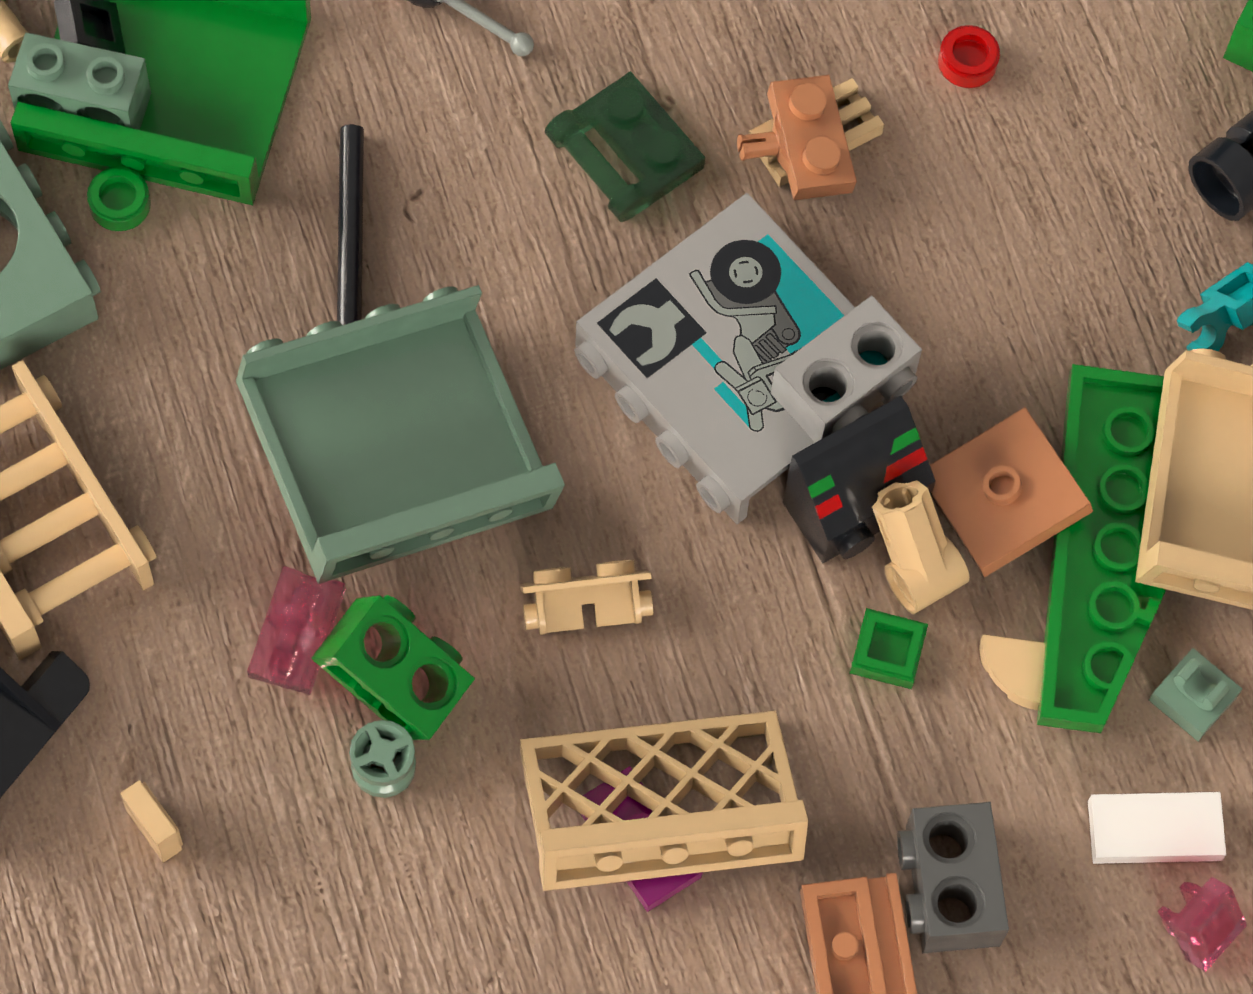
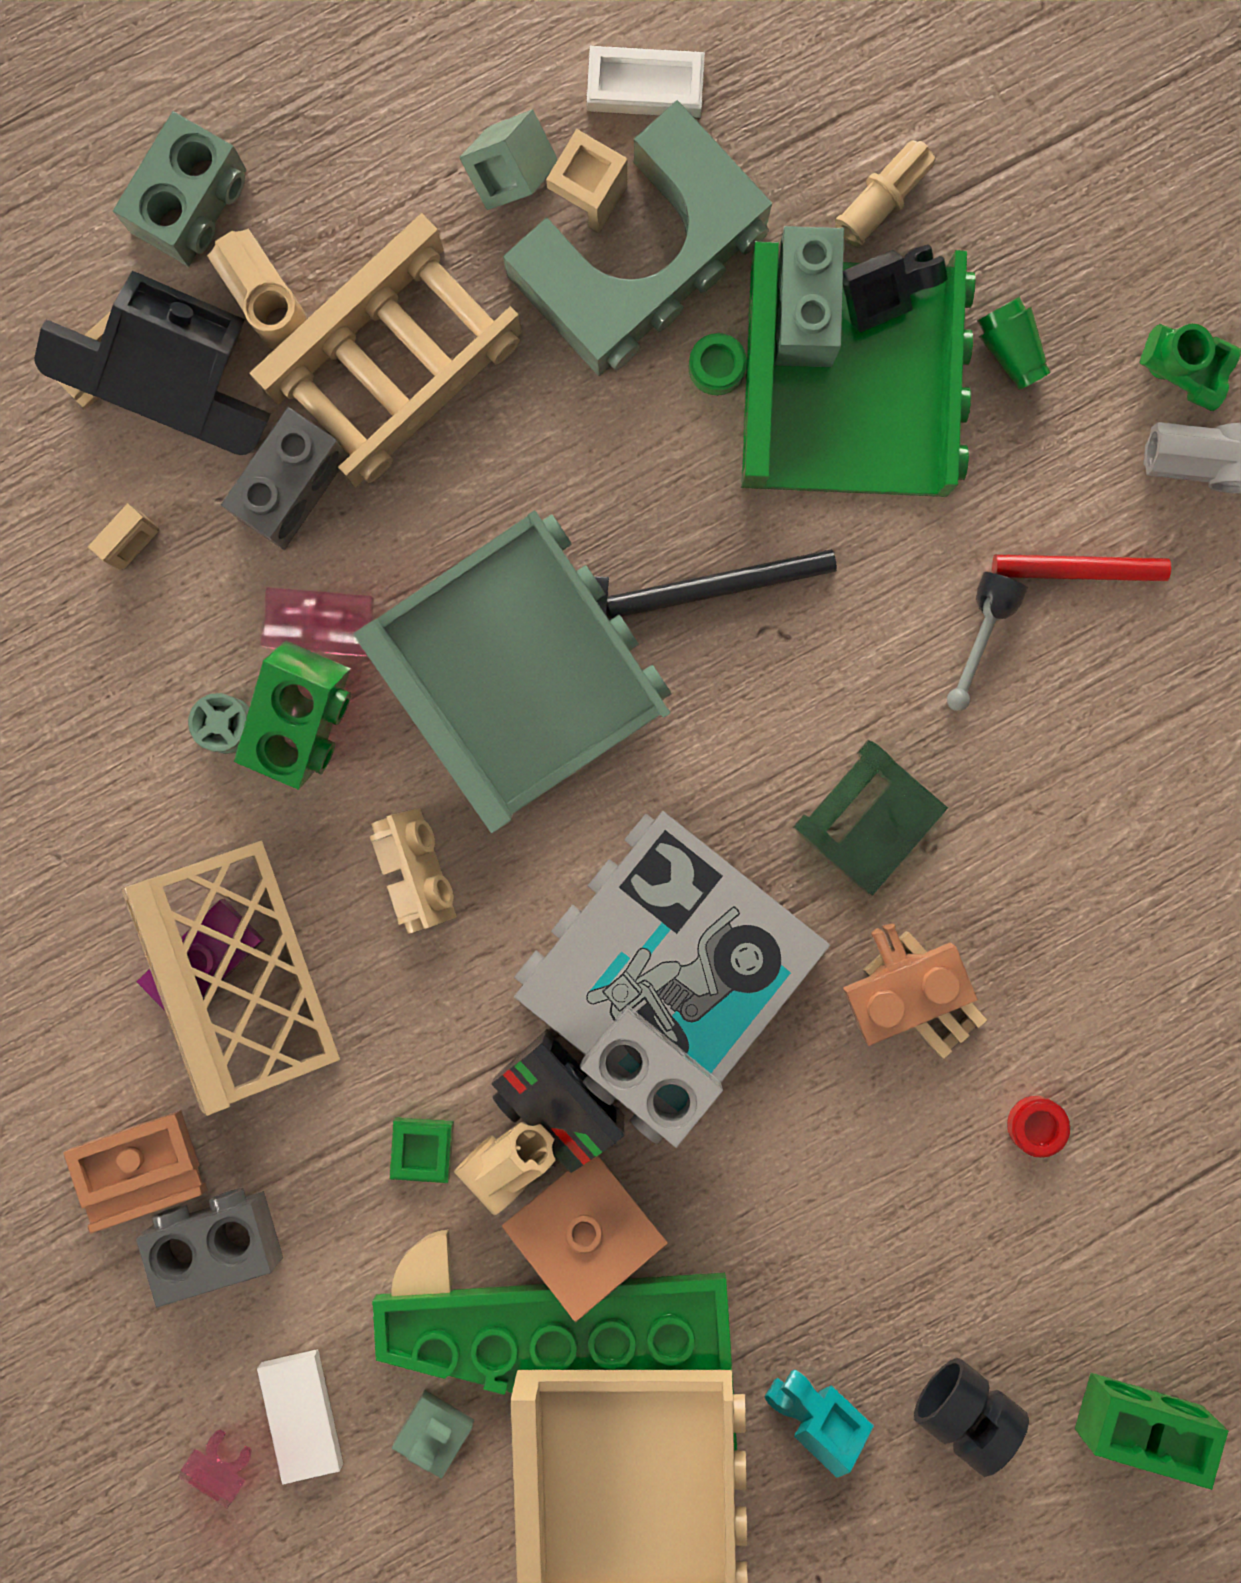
camera: 85 degrees right, 20 degrees up
(133, 635) = (285, 478): none -> dark grey brick

